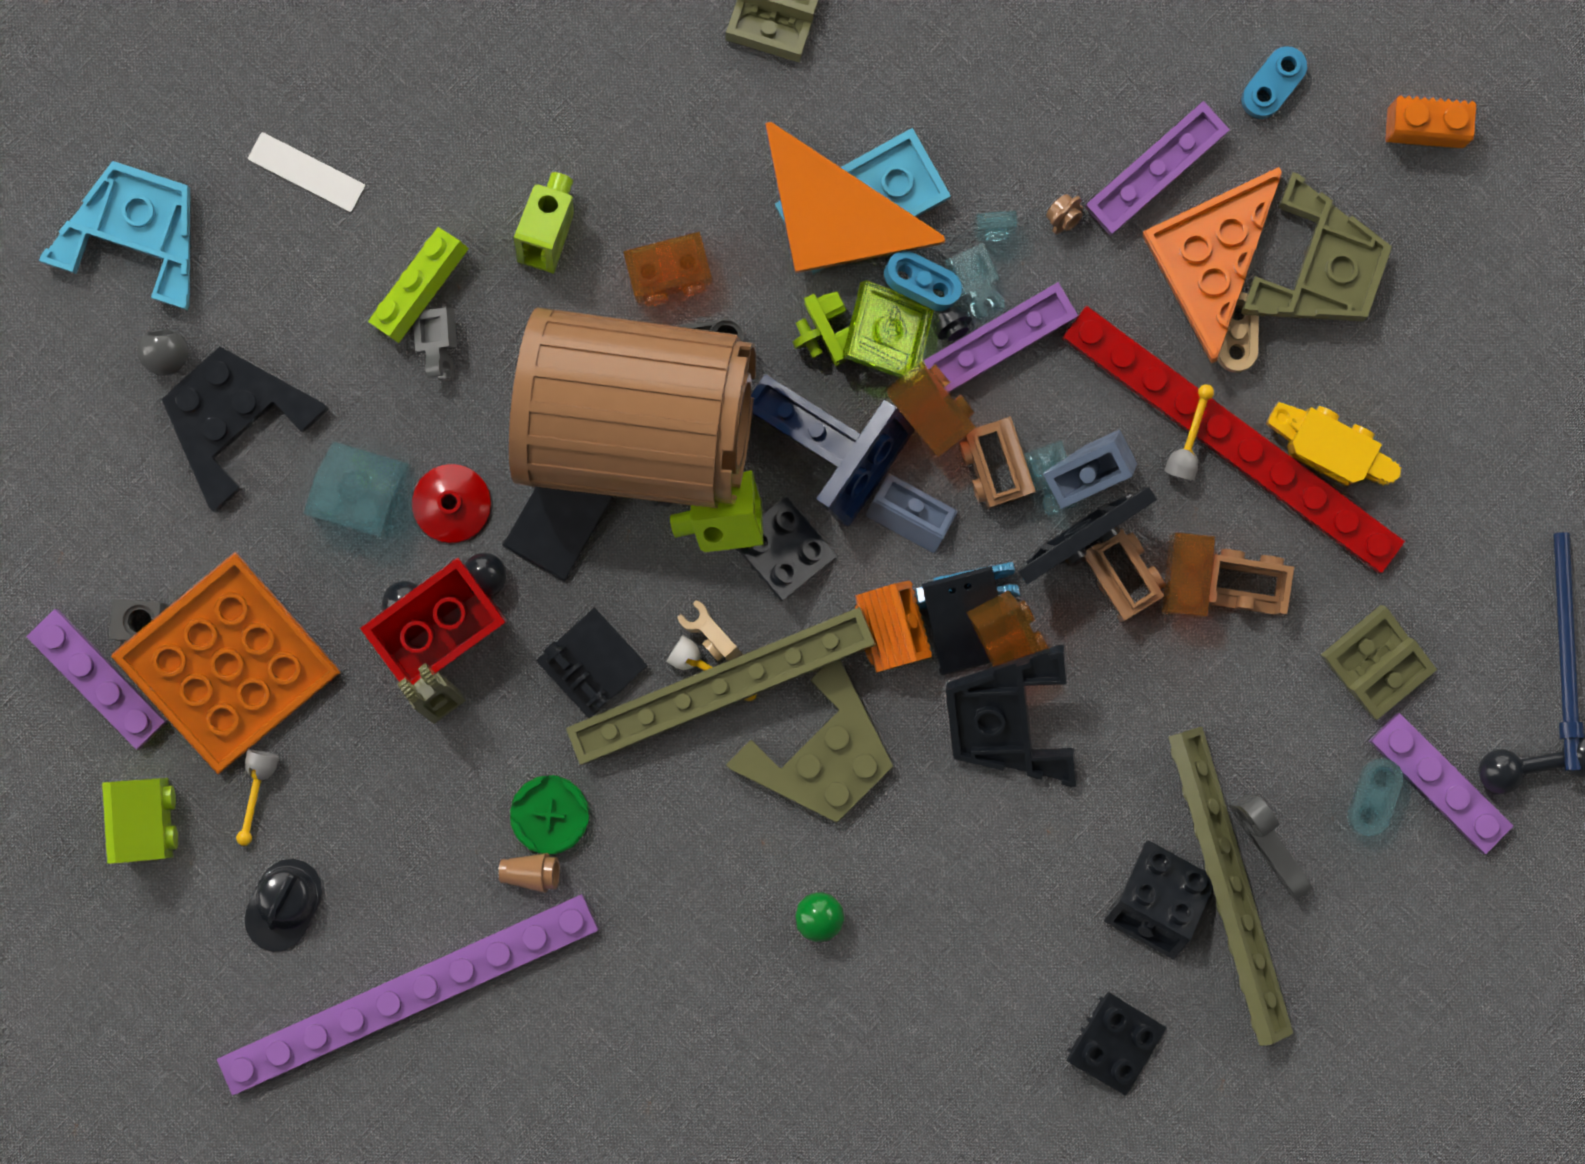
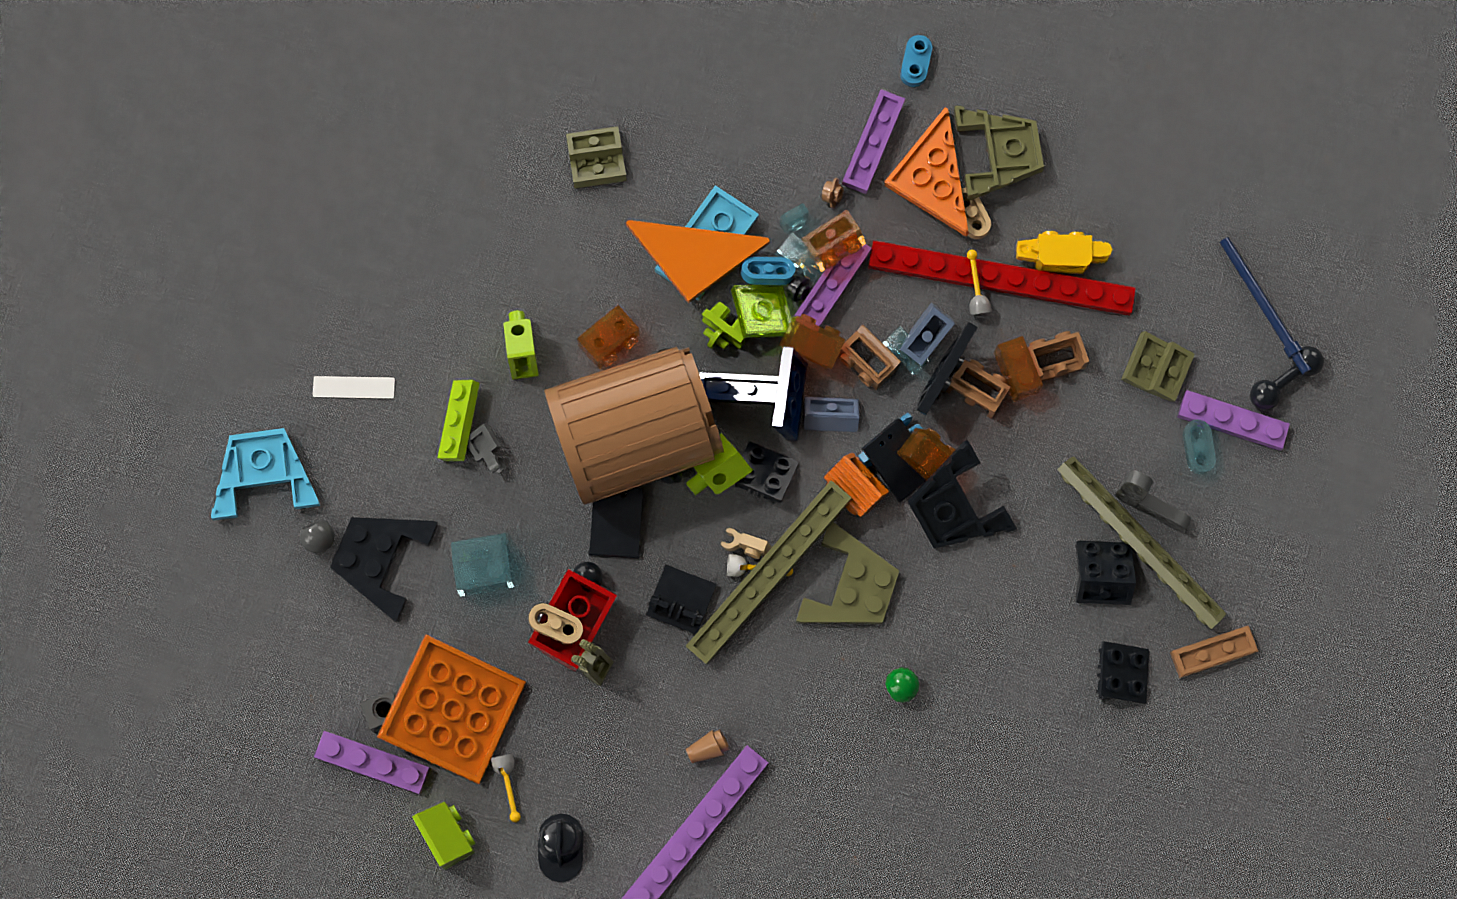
camera: 35 degrees left, 10 degrees down
(404, 623) = (556, 621): none -> tan plate
(466, 517) = (546, 558): red dish -> none
(549, 814) = (701, 706): green tile -> none
(1028, 285) = (834, 241): none -> clear orange brick
(1250, 1074) = (1214, 651): none -> medium nougat tile
(1430, 122) = (1020, 39): orange brick -> none

